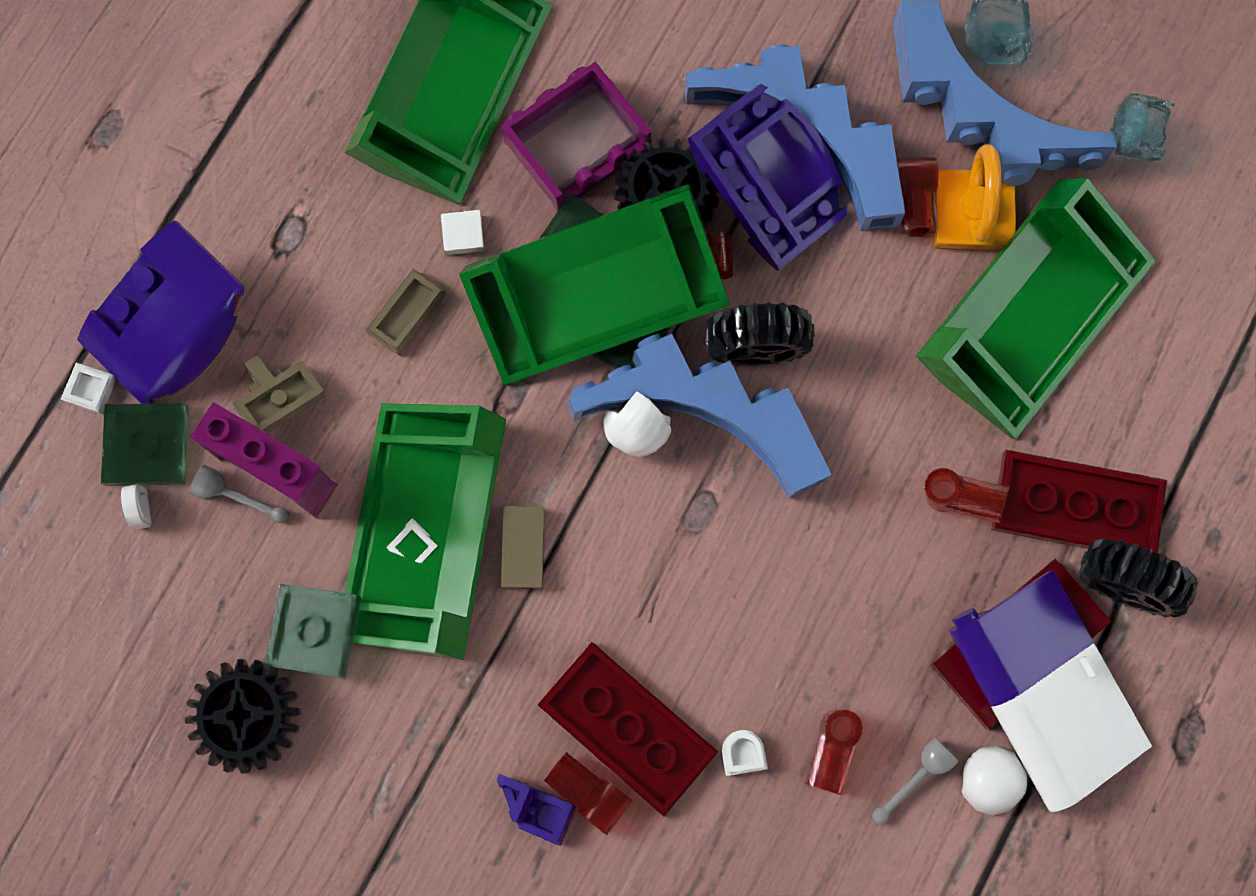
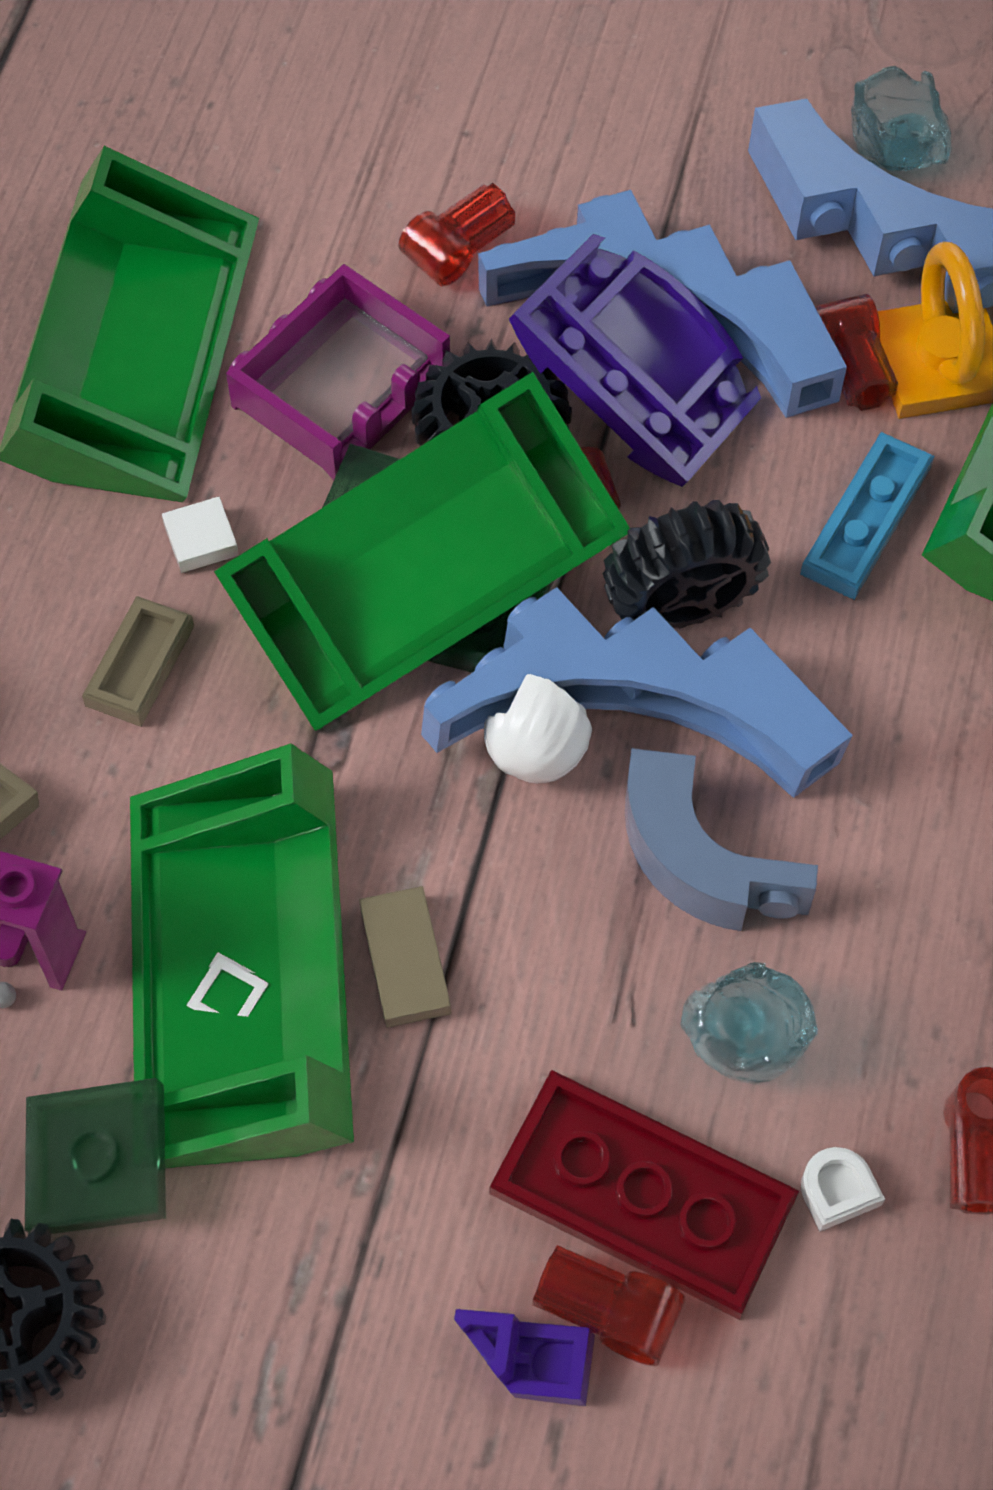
camera: 15 degrees left, 15 degrees down
(670, 53) = (446, 242): none -> clear red piece
(706, 529) = (690, 865): none -> sand blue arch
(716, 644) = (750, 1023): none -> clear light blue hair
(891, 315) = (867, 515): none -> dark azure tile

